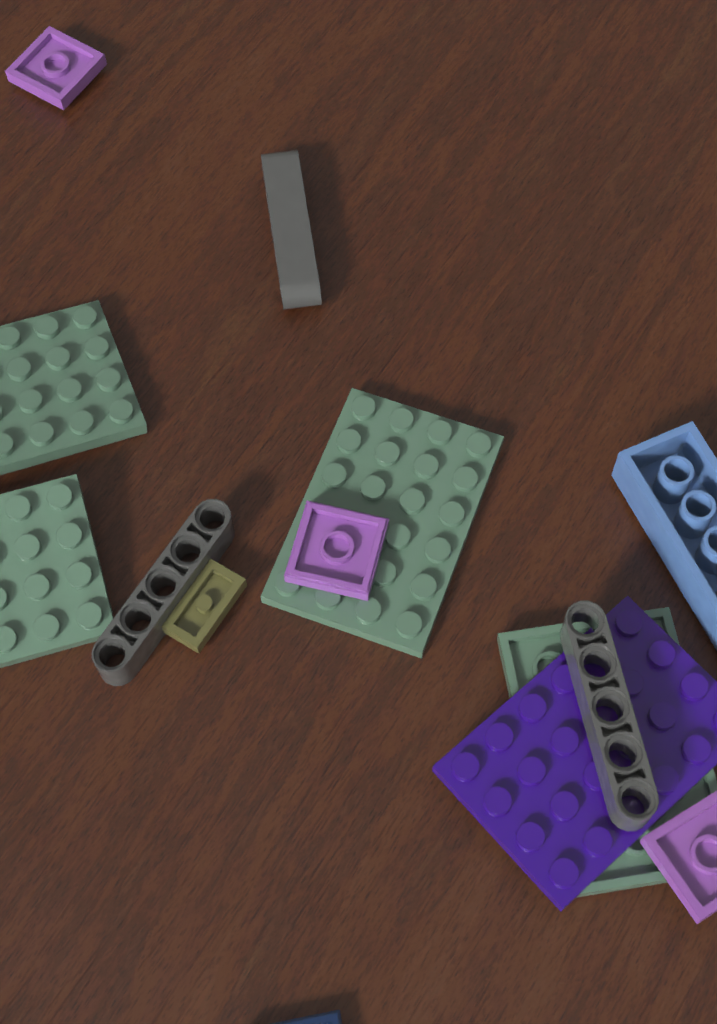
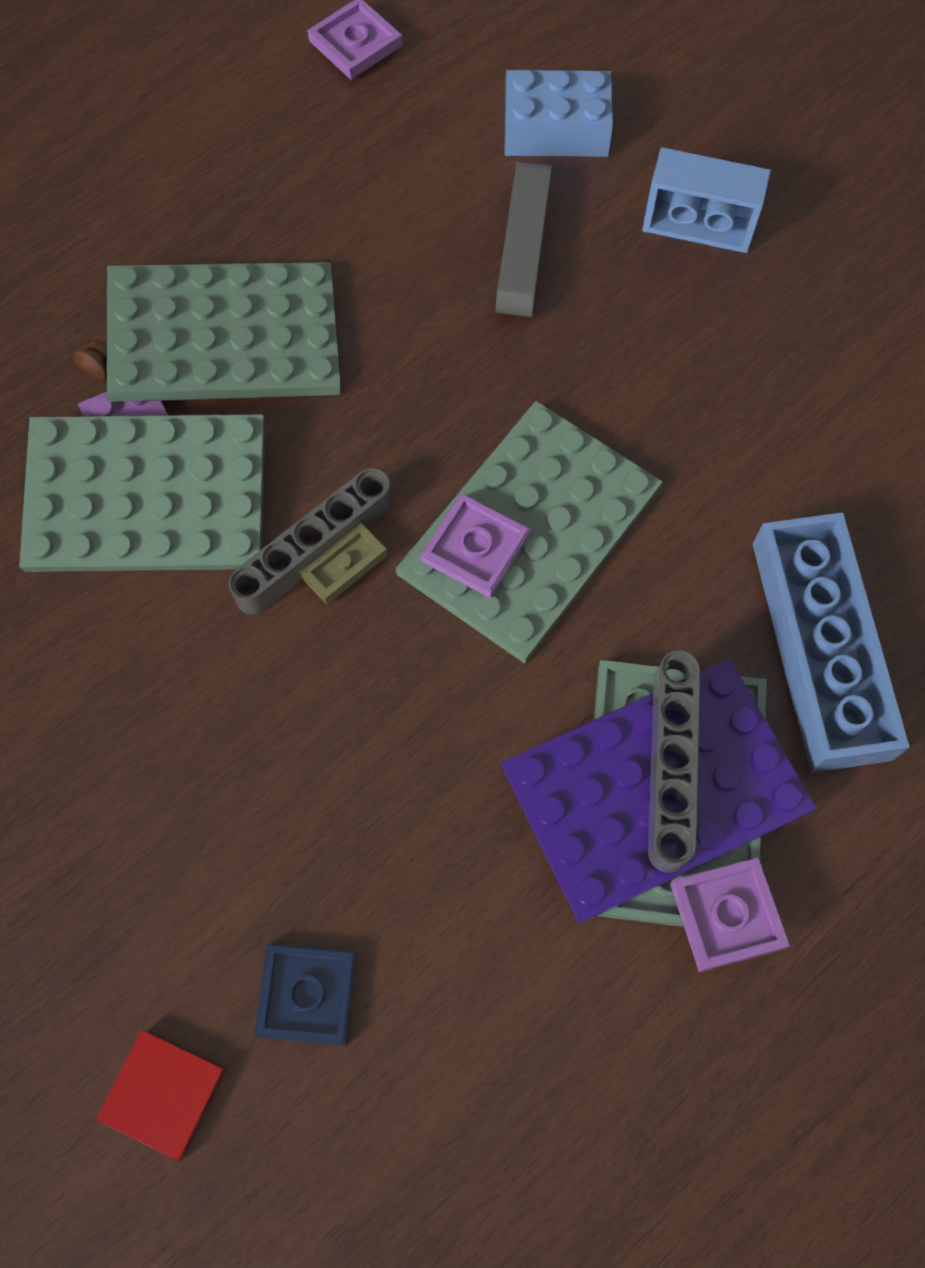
camera: 15 degrees right, 5 degrees up
(287, 96) = (558, 113): none -> medium blue brick
(461, 147) = (705, 200): none -> medium blue brick

